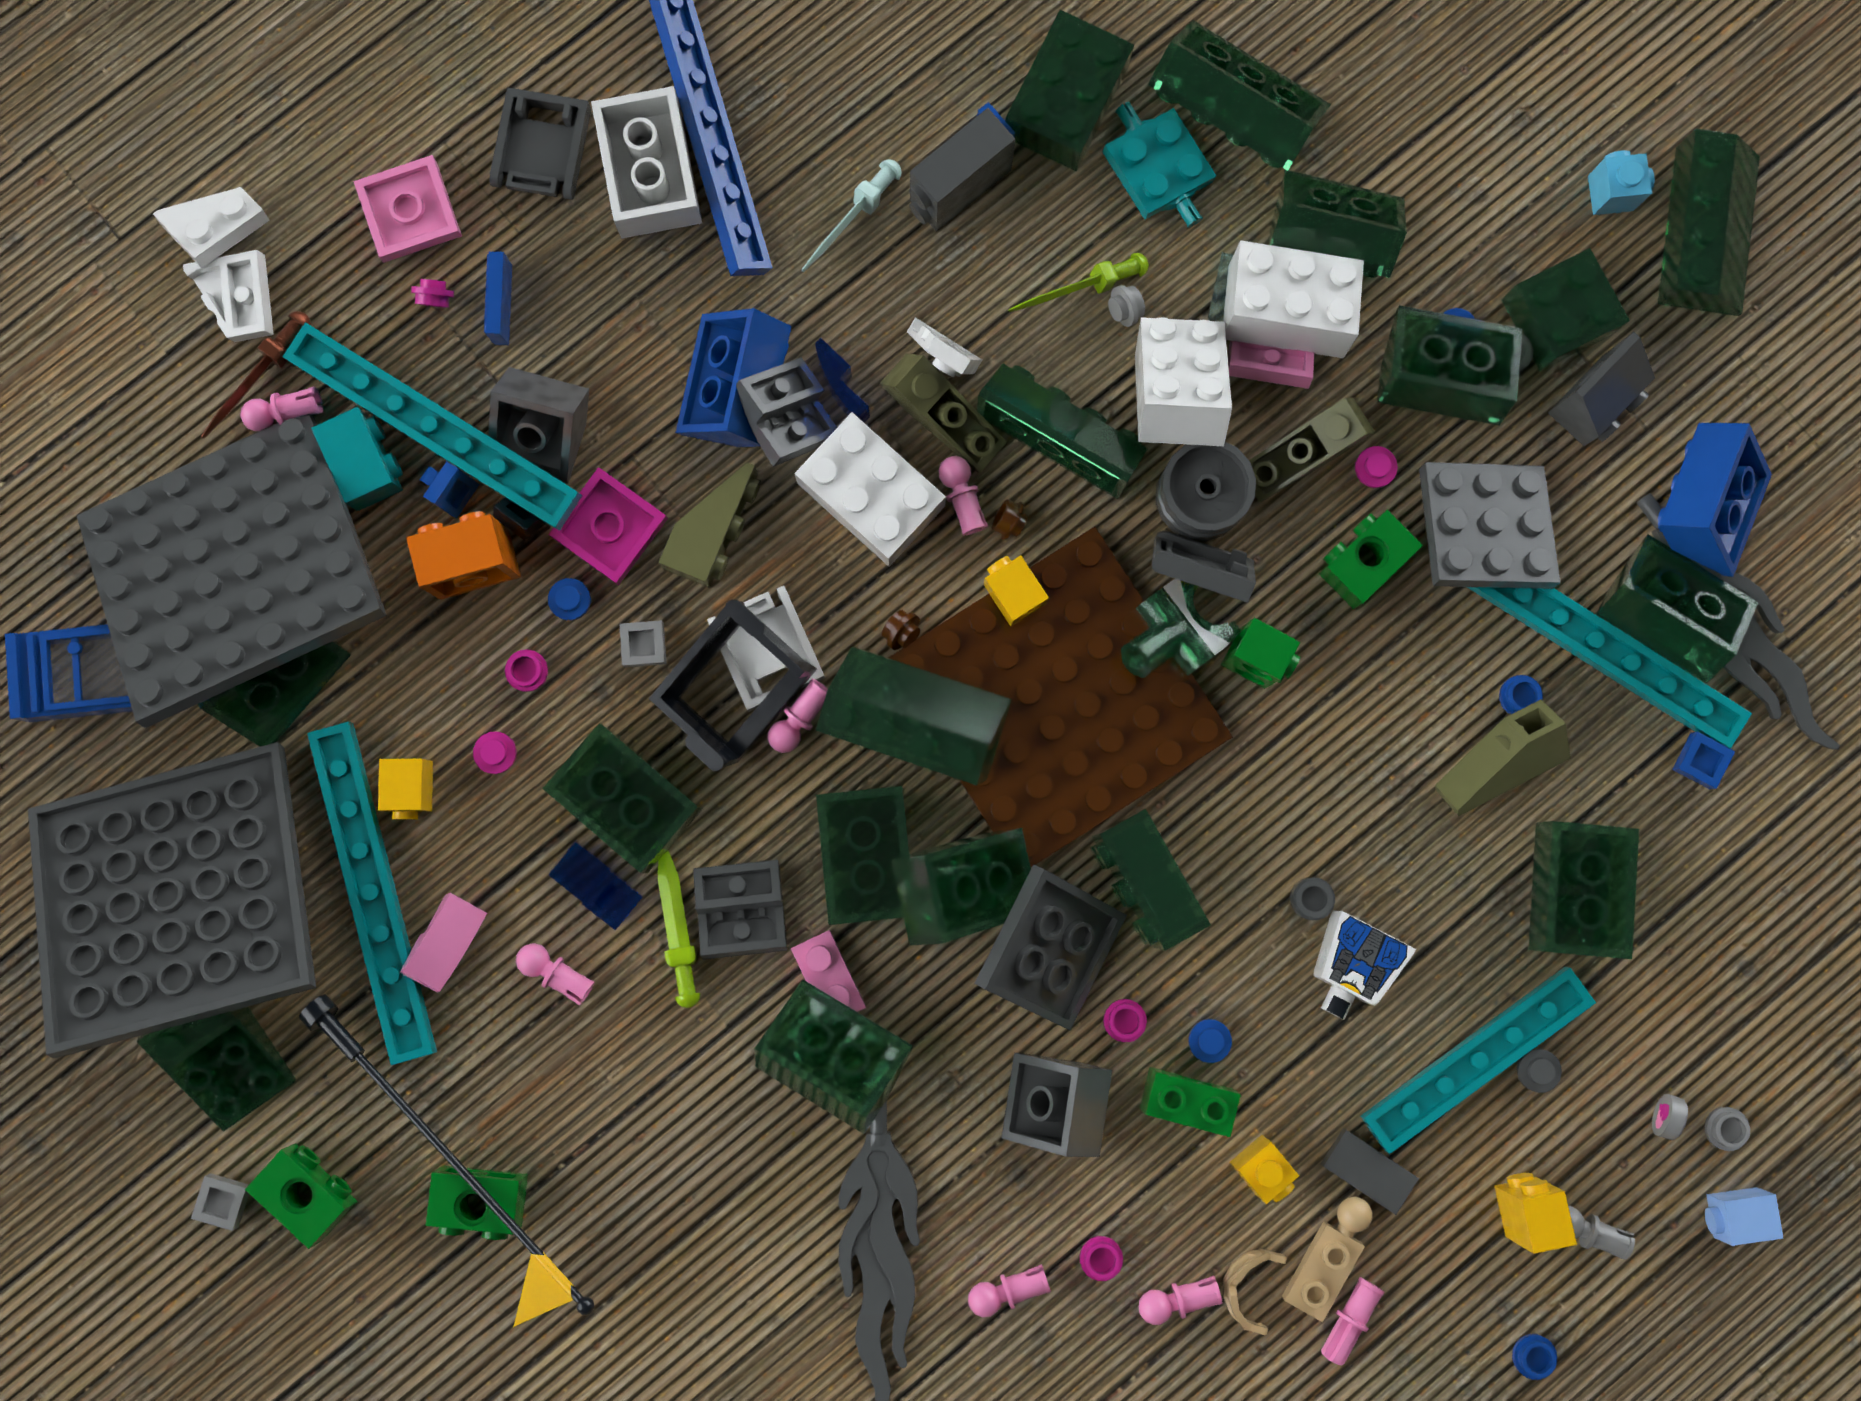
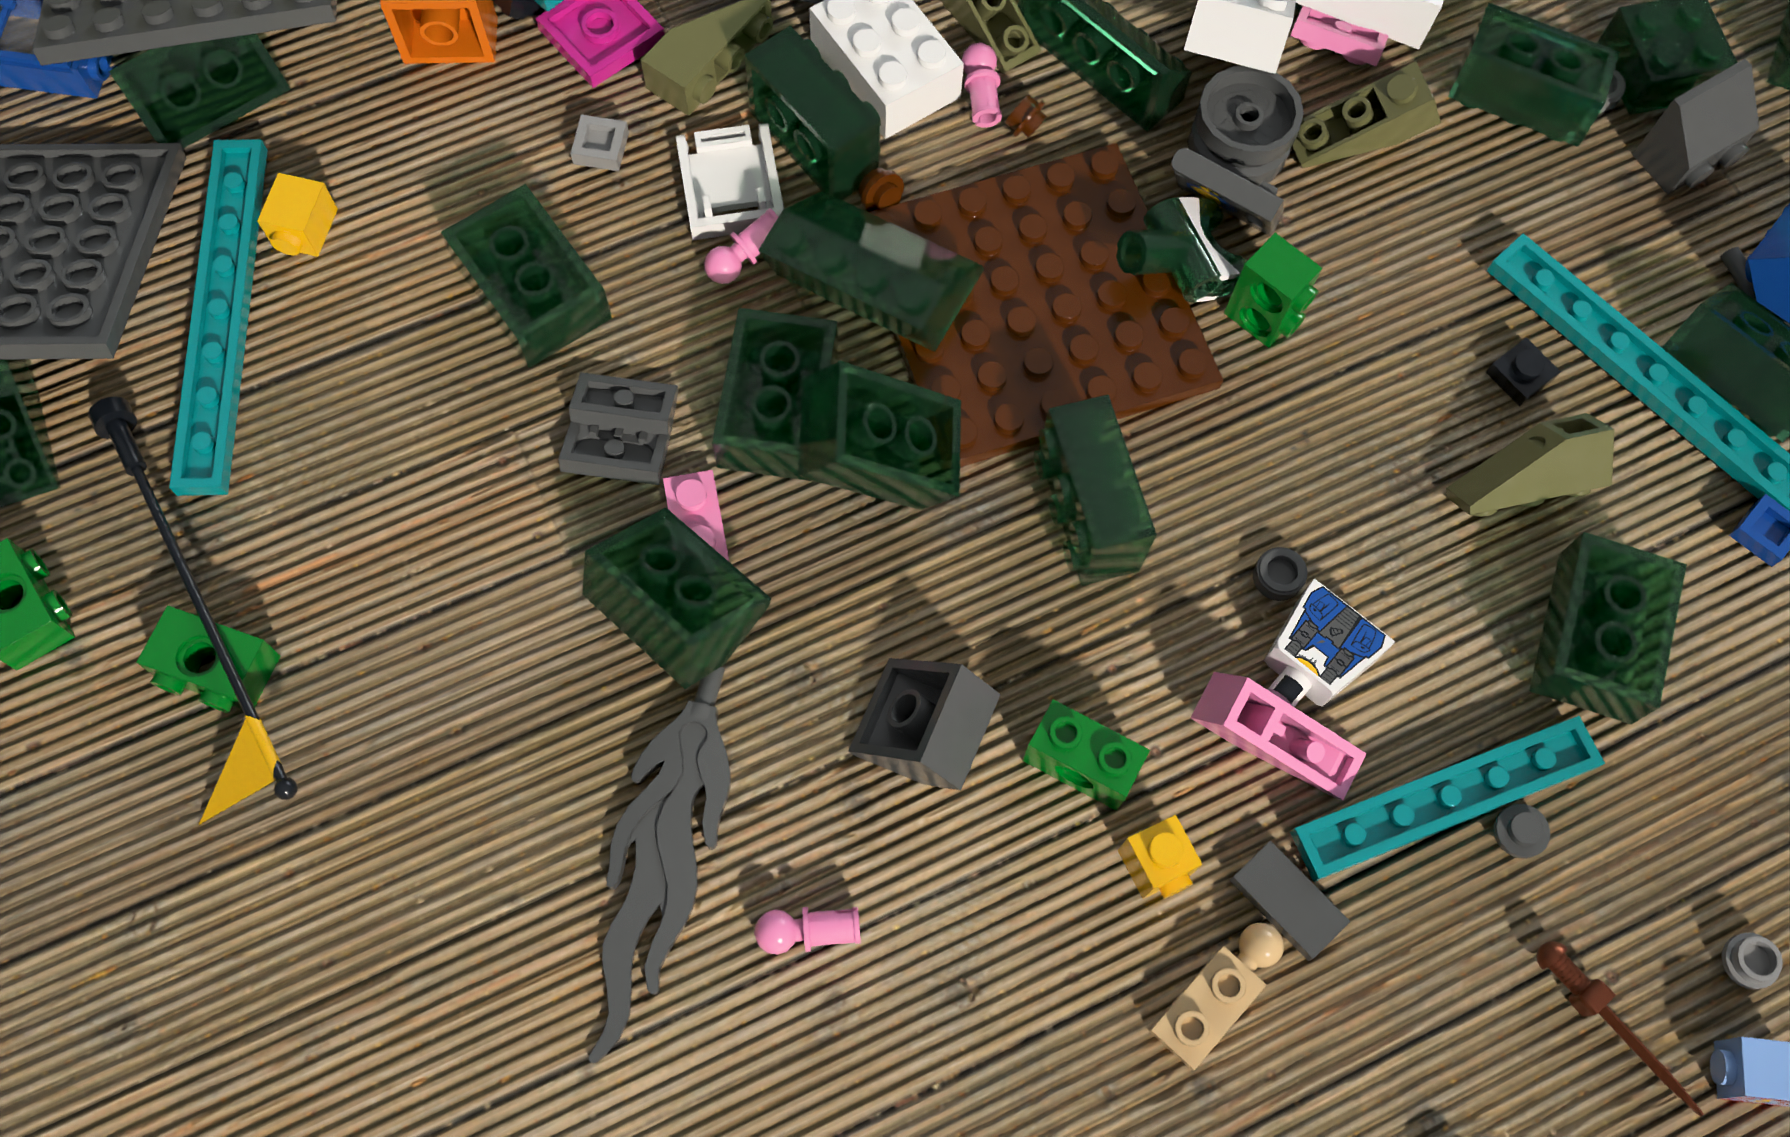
camera: 15 degrees right, 15 degrees down
(443, 943) = (277, 377): bright pink slope -> none
(494, 752) = (406, 210): dark pink plate -> none
(526, 670) = (467, 141): dark pink plate -> none
(535, 961) = (372, 423): bright pink pin -> none
(569, 599) = (537, 87): blue plate -> none
(595, 885) = (466, 363): clear blue slope -> none
(680, 953) = (538, 455): lime sword -> none
(702, 737) = (658, 157): black piece -> none
(826, 578) = (813, 112): none -> clear green brick
(1014, 589) = (1015, 167): yellow brick -> none
(1050, 948) = (961, 534): dark grey plate -> none
(1101, 1258) = (933, 921): dark pink plate -> none
(1125, 1020) = (1029, 652): dark pink plate -> none
(1158, 1306) = (988, 995): bright pink pin -> none
(1210, 1040) = (1125, 698): blue plate -> none
(1235, 1274) = (1084, 1004): tan helmet -> none
(1334, 1043) = (1278, 733): none -> bright pink slope
(1351, 1321) = (1232, 1079): bright pink axle -> none
(1376, 467) = (1434, 158): dark pink plate -> none
(1392, 548) = (1438, 234): green brick -> none
(1482, 660) = (1523, 371): none -> black plate
(1489, 525) = (1553, 232): plate -> none
(1519, 693) = (1560, 406): blue plate -> none
(1535, 1213) = (1494, 987): yellow brick -> none
(1601, 1236) = (1534, 1026): light grey pin -> none
(1613, 1191) = (1591, 998): none -> copper sword
(1669, 1117) = (1680, 924): light grey tile -> none

